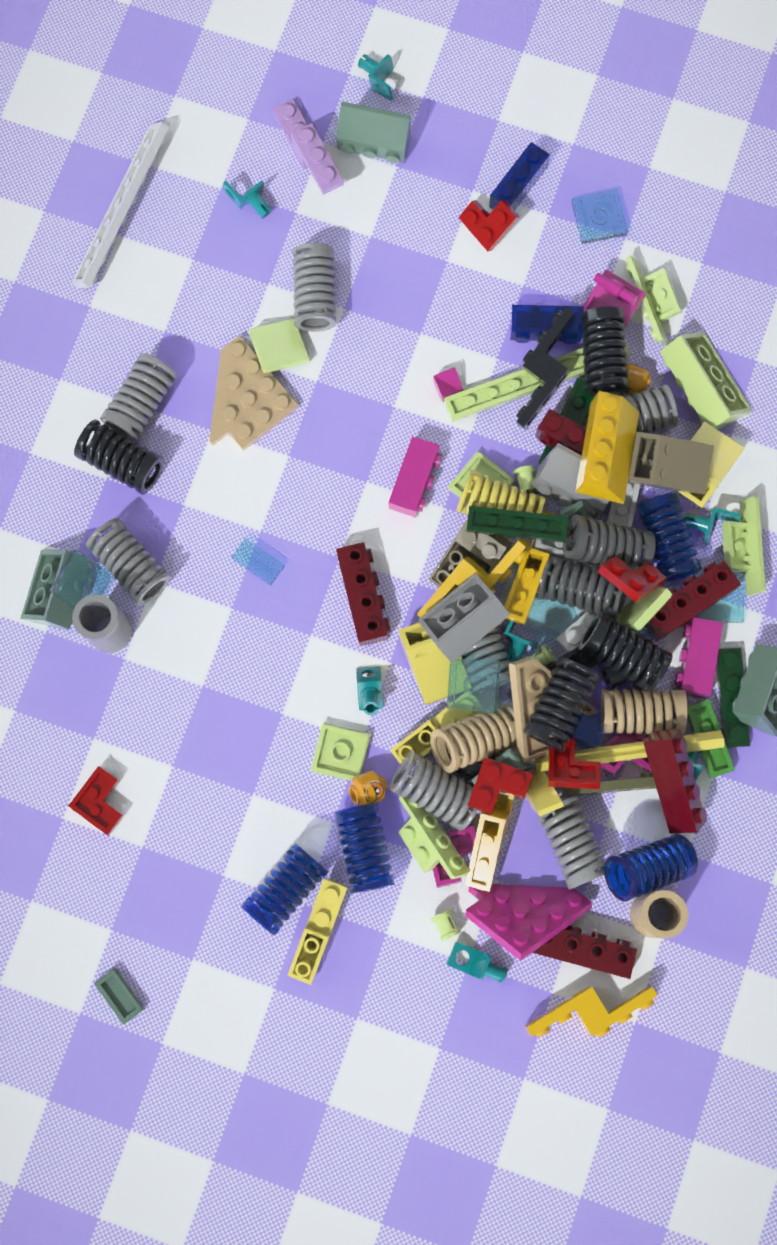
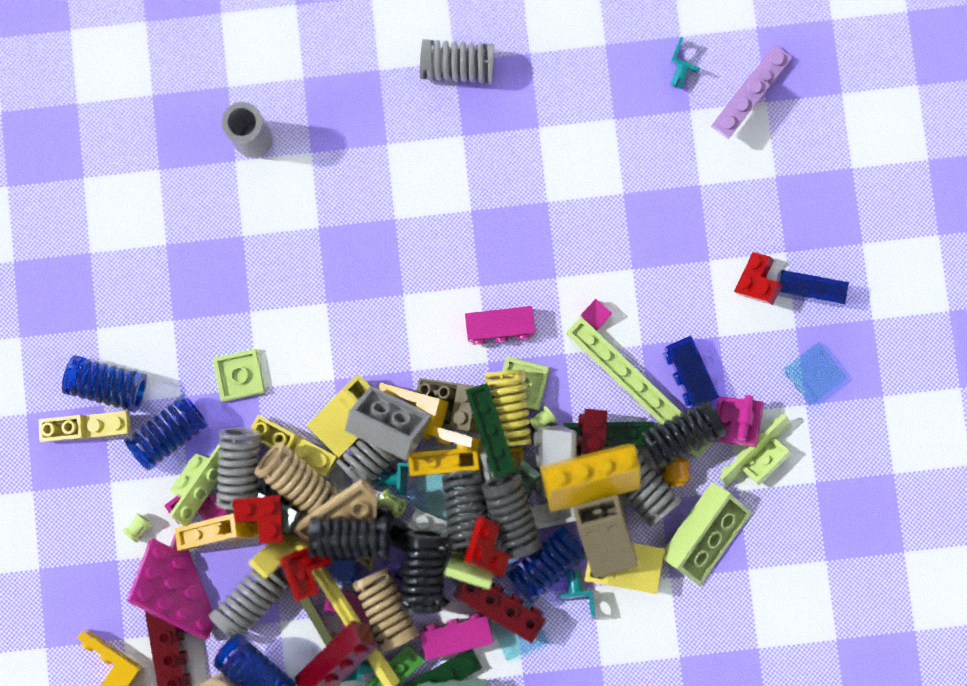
camera: 65 degrees right, 5 degrees up
(41, 604) = (264, 76): sand green slope -> none
(79, 579) = (277, 94): clear light blue tile -> none
(91, 801) = (104, 194): red plate -> none
(118, 456) = (400, 63): black piece -> none
(128, 561) = (322, 124): light grey piece -> none
(246, 398) = (504, 150): tan wing -> none
(257, 561) = (366, 229): clear light blue tile -> none
(278, 346) = (560, 155): yellowish green tile -> none
(322, 283) = (631, 164): light grey piece -> none
(362, 594) = (378, 329): dark red brick -> none
(367, 788) = (216, 412): light orange head -> none
(369, 690) = (300, 374): teal bracket -> none
(373, 132) = (790, 142): sand green slope -> none
(378, 73) = (853, 118): teal bracket -> none
(473, 685) = (337, 458): clear light blue tile -> none
(477, 964) = (117, 568): teal bracket -> none
(545, 368) = (645, 390): black bracket -> none
(744, 546) = (571, 632): yellowish green bracket -> none

